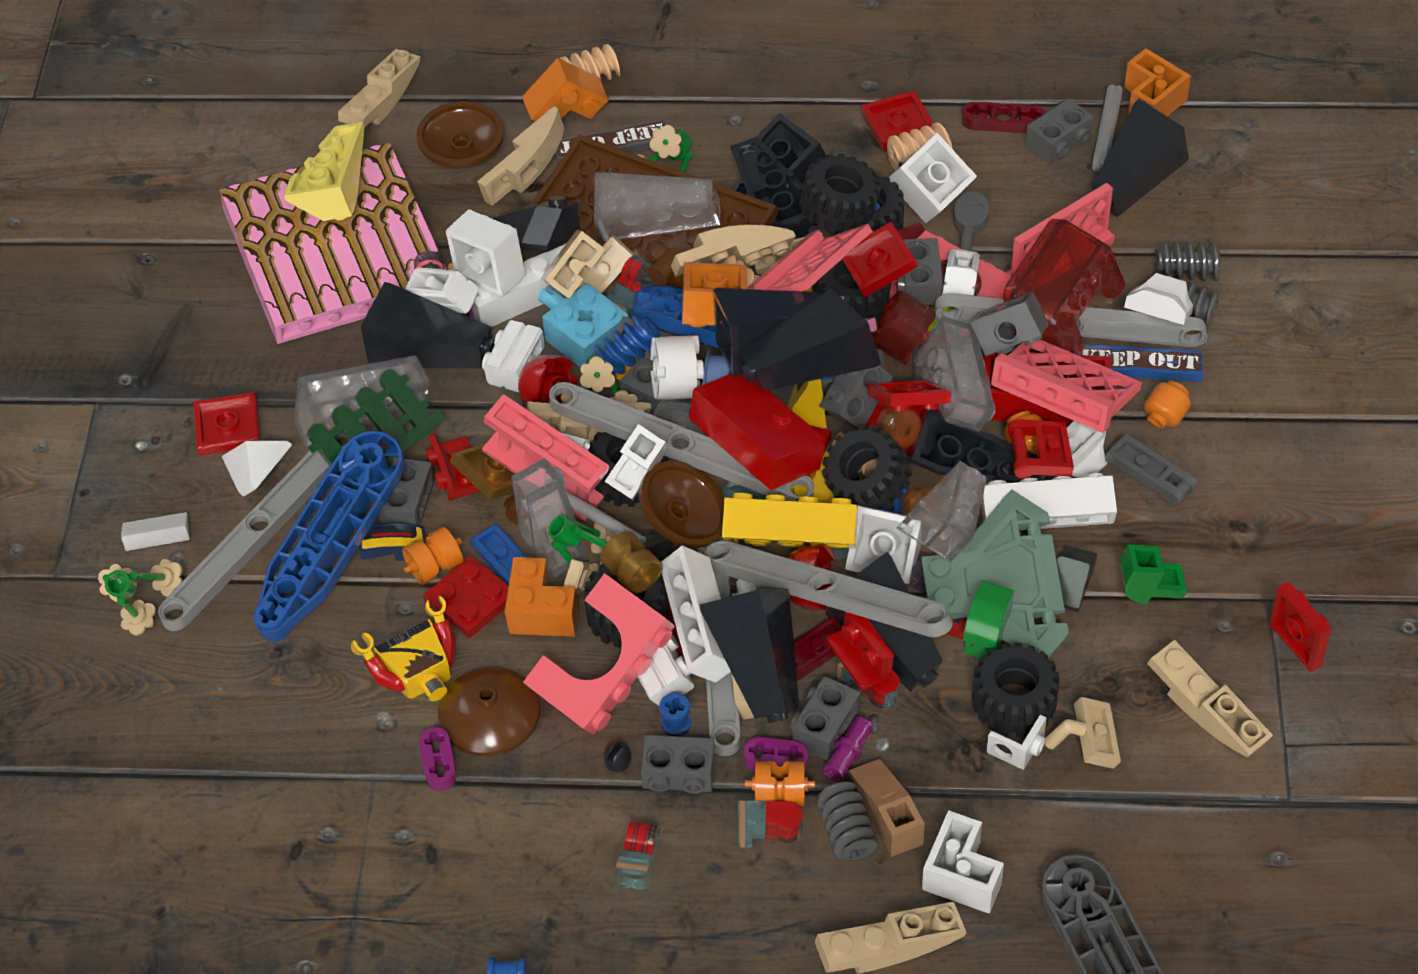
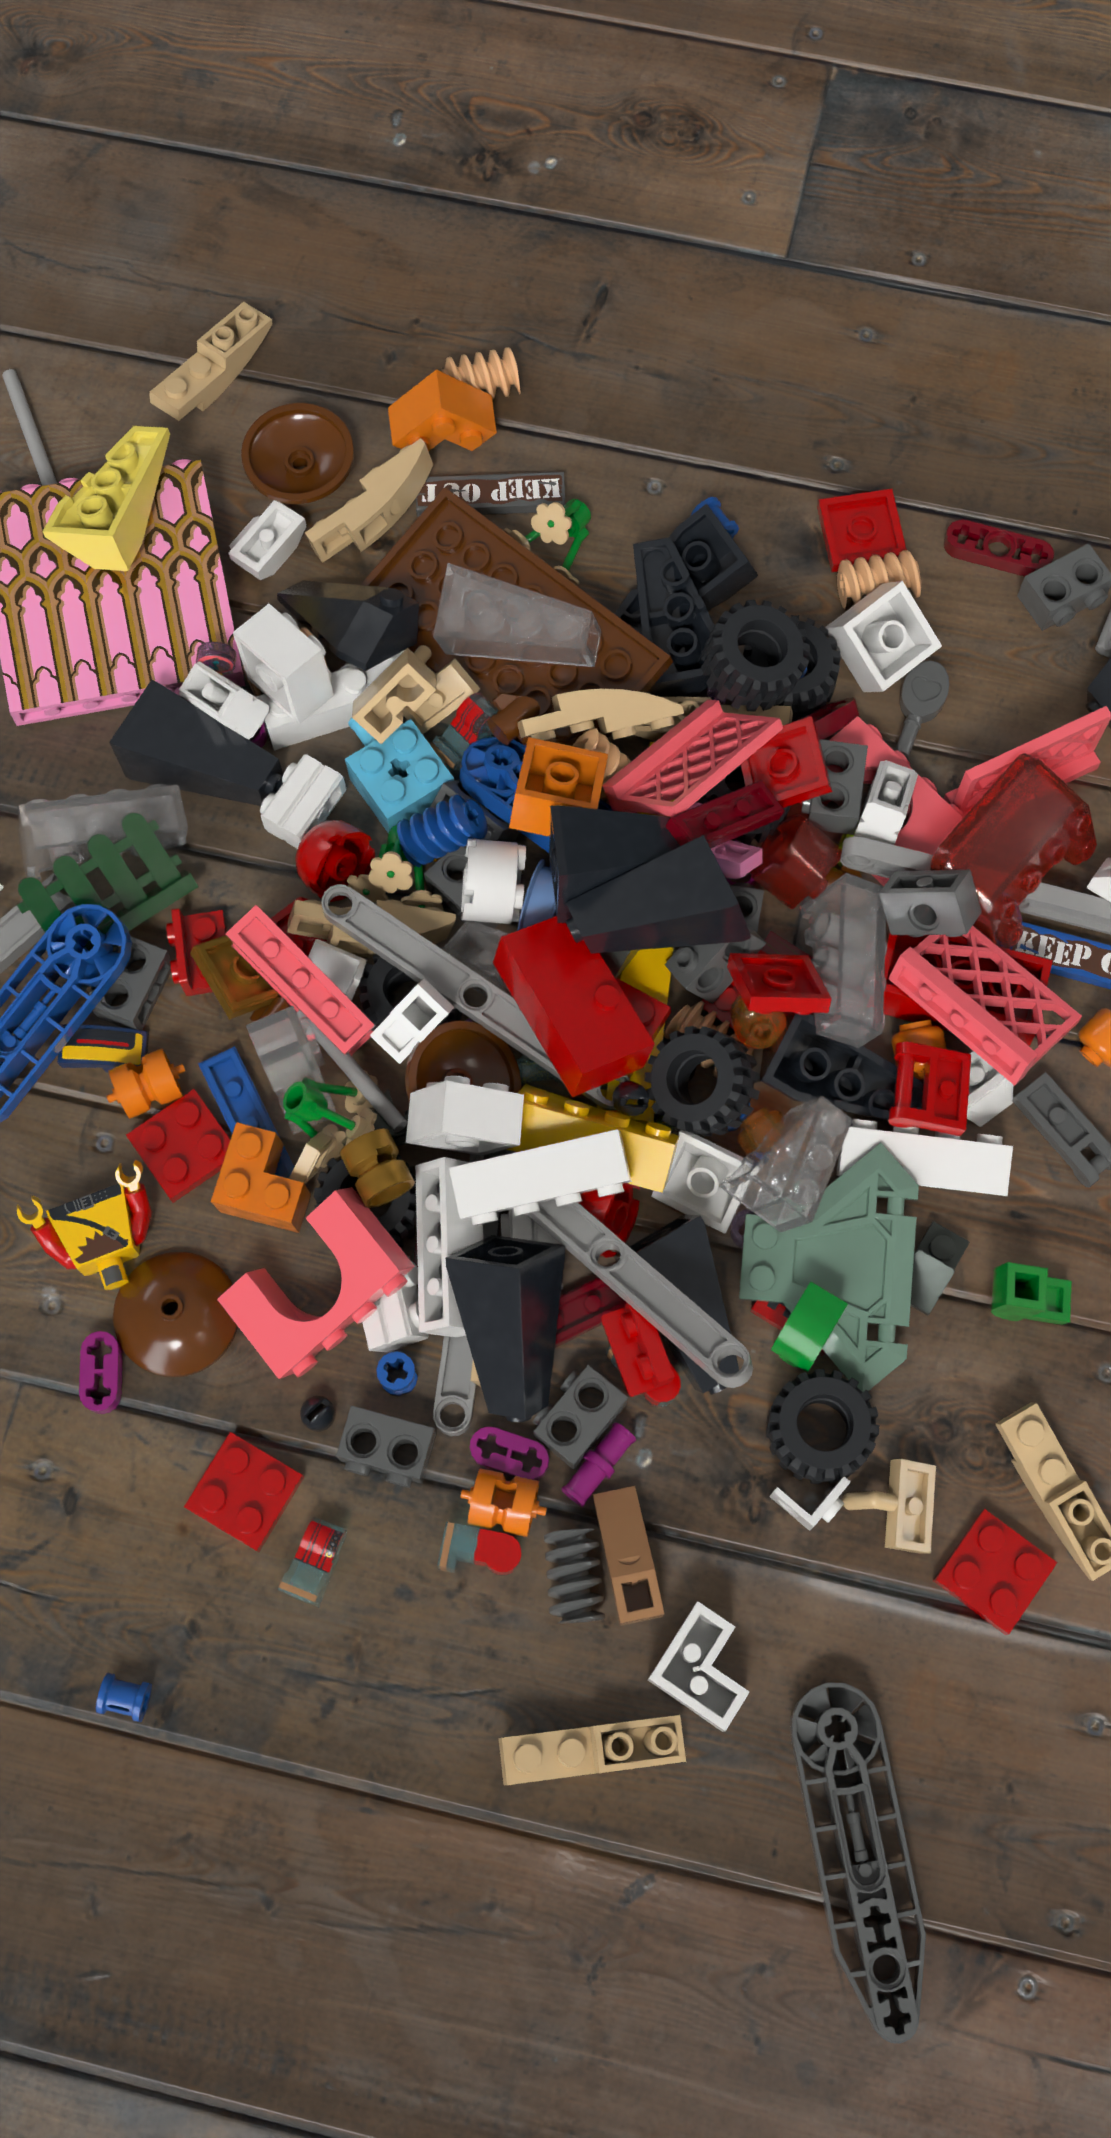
camera: 10 degrees right, 20 degrees up
(240, 149) = (29, 427): none -> light grey bar
(449, 194) = (268, 540): none -> white slope
(571, 820) = (244, 1492): none -> red plate
(692, 513) = (465, 1116): none -> white brick
(760, 540) = (540, 1175): none -> white brick
(821, 494) = (630, 1090): none -> black hinge
(848, 285) = (727, 816): none -> dark red tile
(1174, 768) = (995, 1572): none -> red plate

